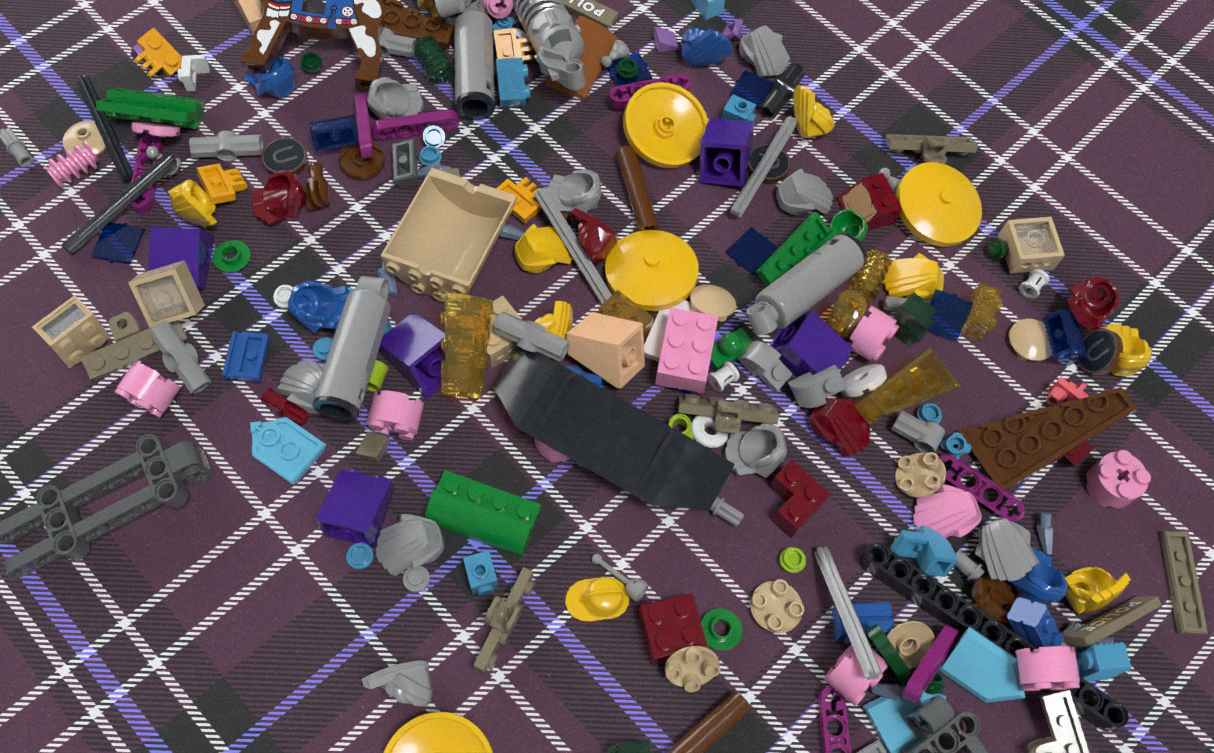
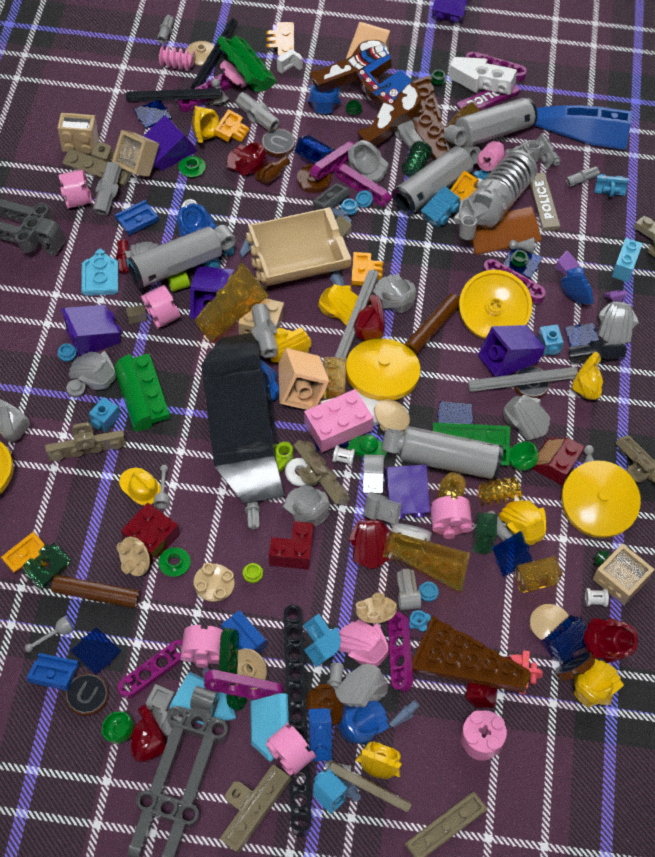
camera: 55 degrees right, 5 degrees down
(848, 614) = (233, 613): light grey axle -> none

